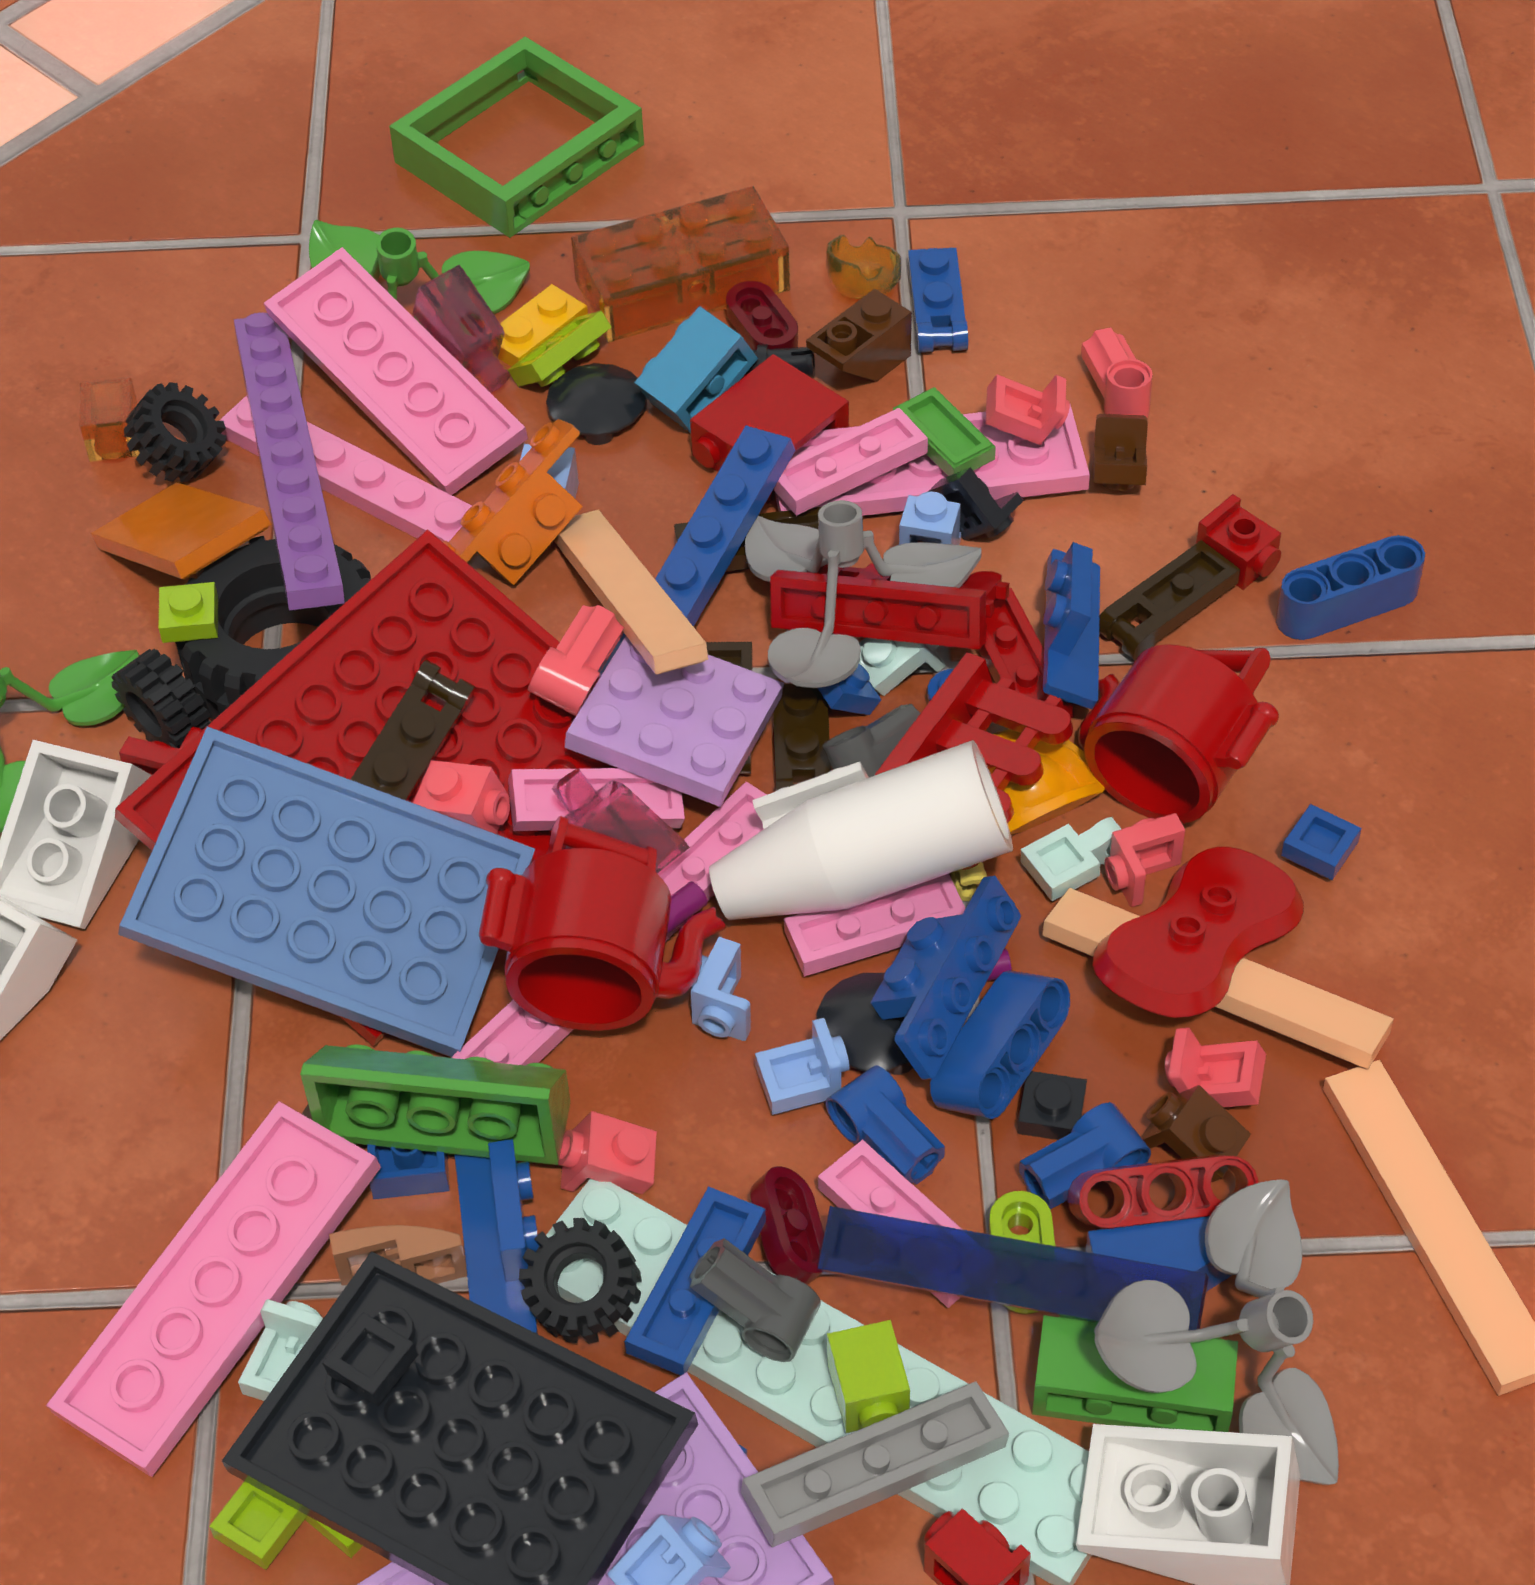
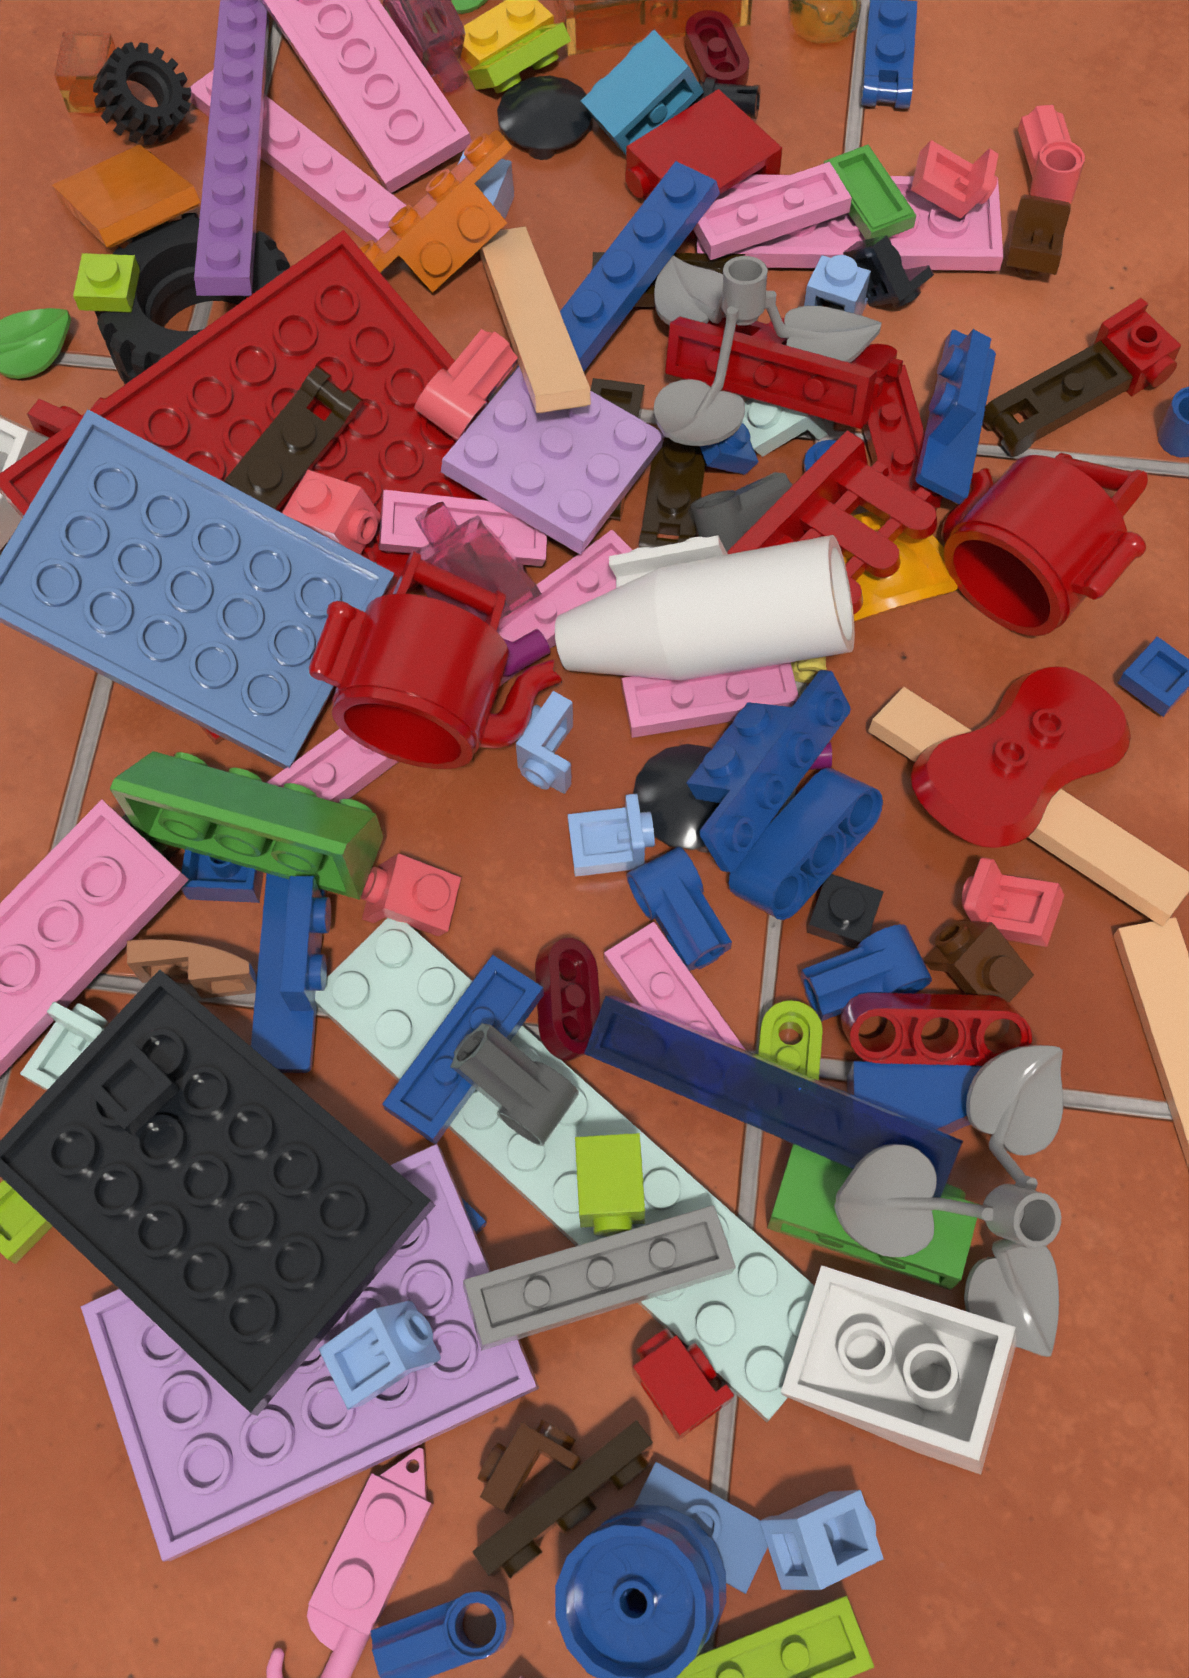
camera: 10 degrees right, 15 degrees up
(159, 698) = (74, 363): black tyre -> none
(561, 1249) = (319, 1022): black tyre -> none
(866, 337) = (812, 83): reddish brown slope -> none
(1068, 859) = (909, 658): light aqua plate -> none
(1143, 850) = (982, 658): coral bracket -> none

